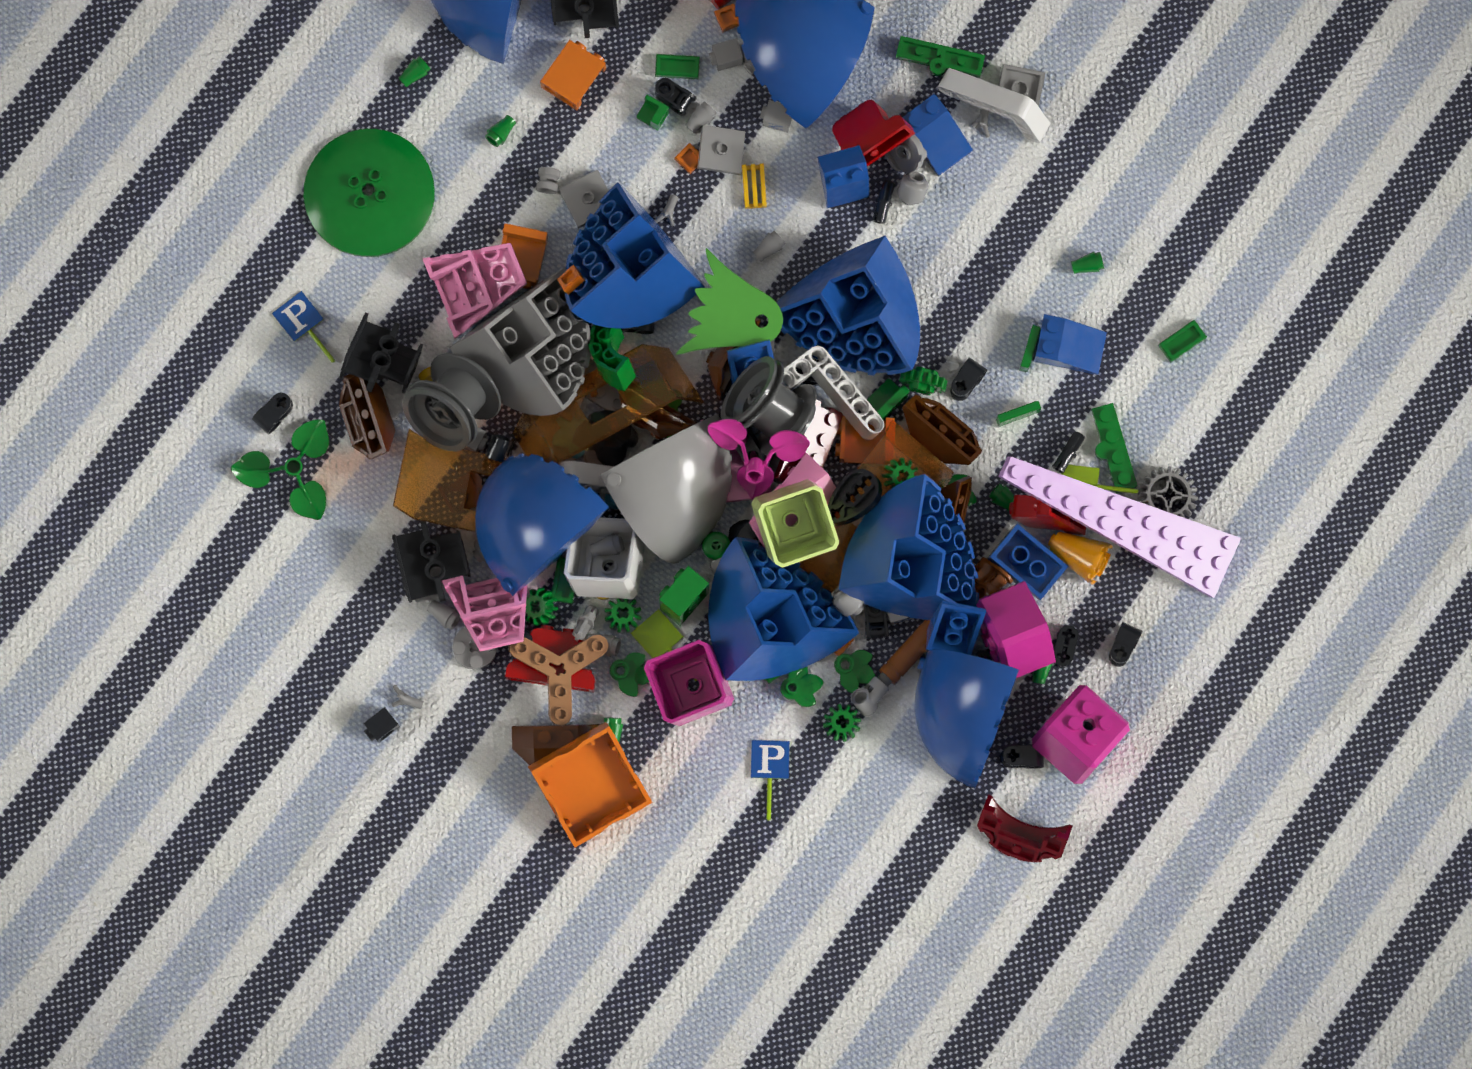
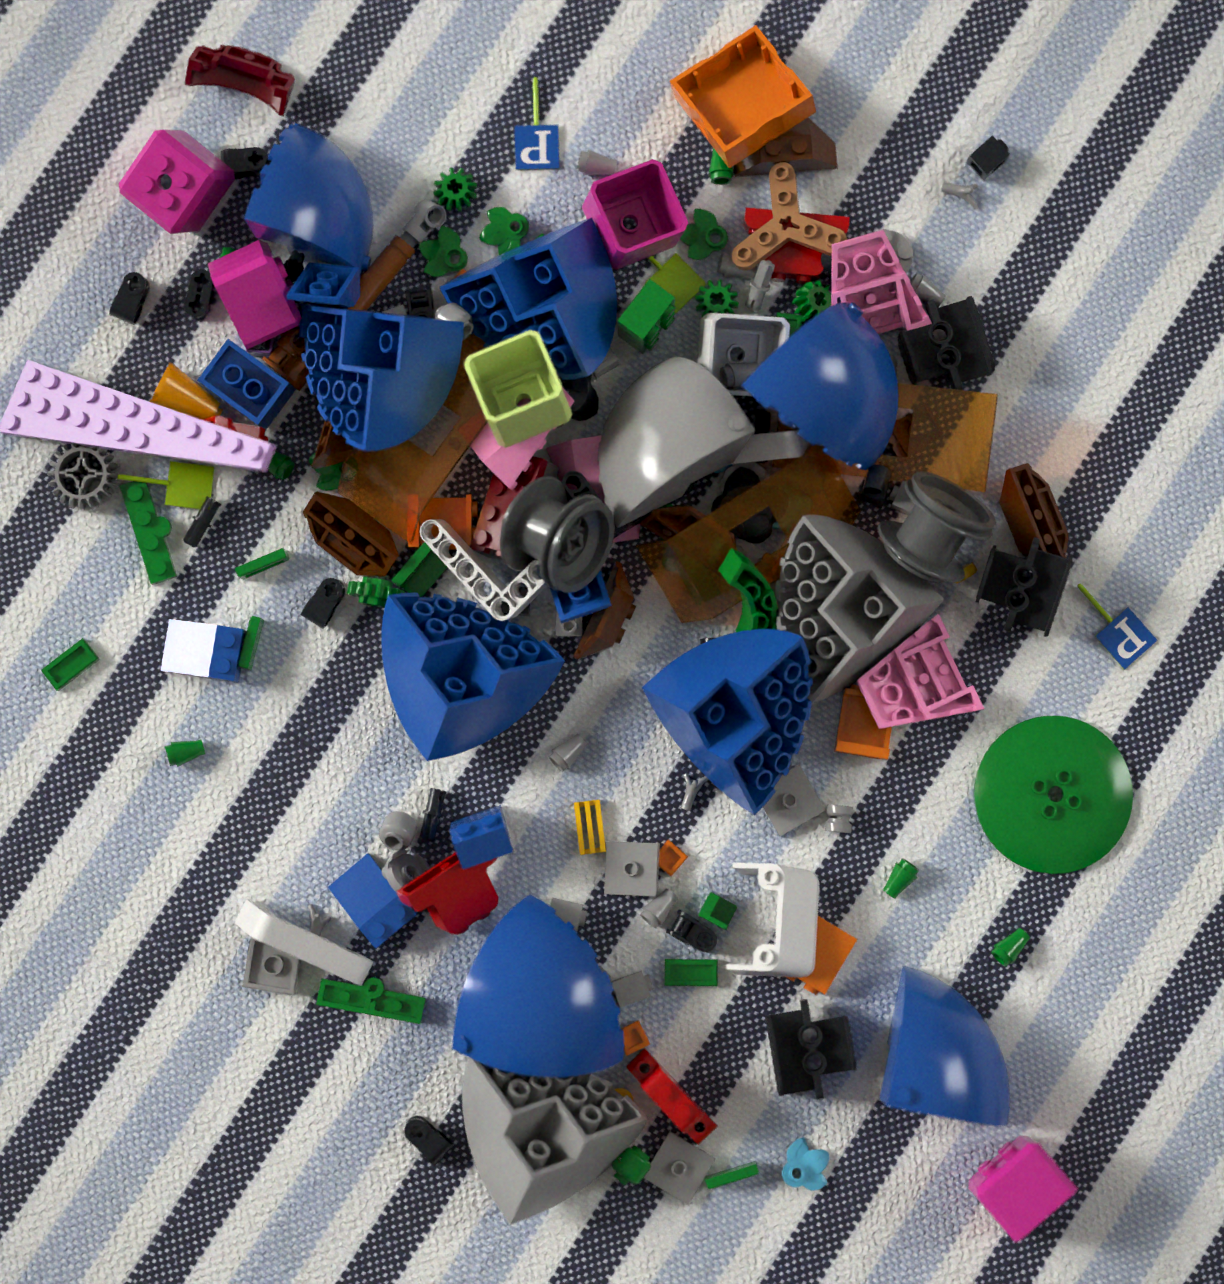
camera: 175 degrees left, 5 degrees up
(270, 415) = (1146, 515): black piece -> none
(310, 498) = (1096, 417): green plant -> none
(570, 279) = (804, 680): orange tile -> none
(589, 96) = (795, 922): none -> white windscreen
(707, 545) = (611, 384): green head -> none
(720, 739) = (595, 164): none -> light grey cone
(731, 312) = (608, 655): bright green piece -> none
(755, 474) = (569, 457): dark pink plant -> none
(864, 503) = (438, 423): black piece -> none
(895, 469) = (387, 466): green gear -> none

